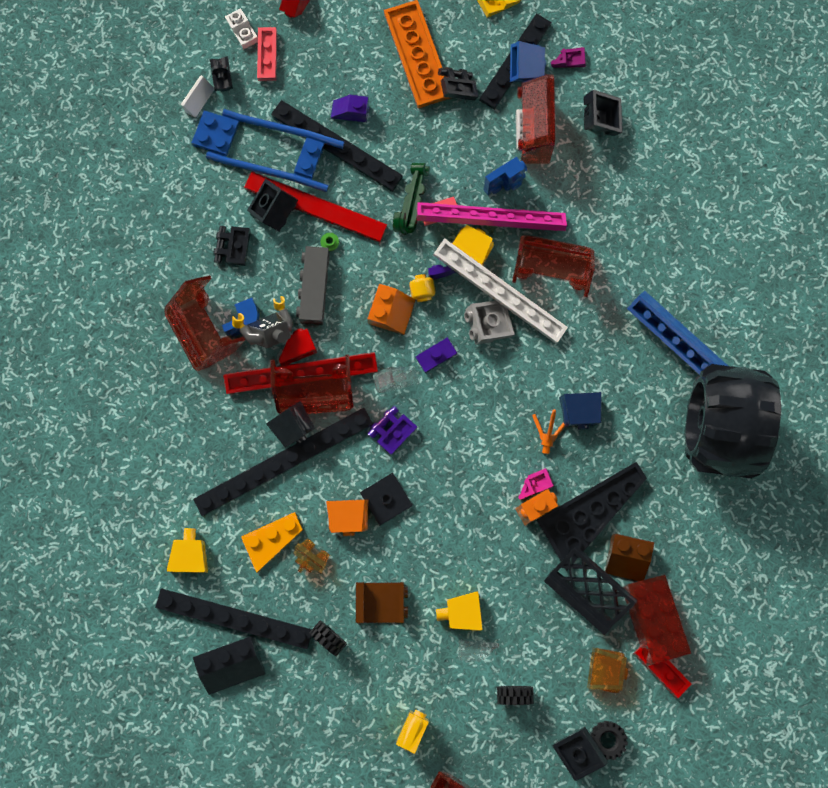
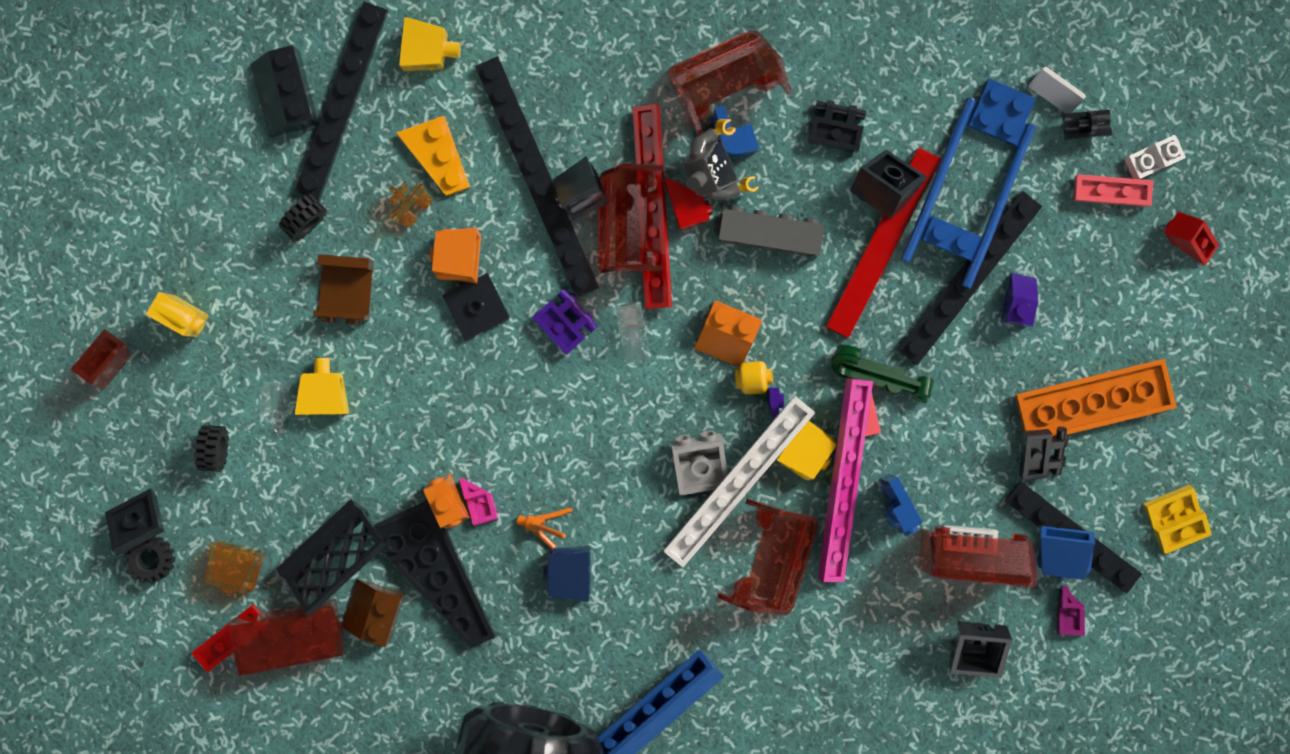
camera: 90 degrees right, 10 degrees up
(333, 245) = (823, 258): bright green plate -> none
(436, 355) = (662, 388): dark purple tile -> none

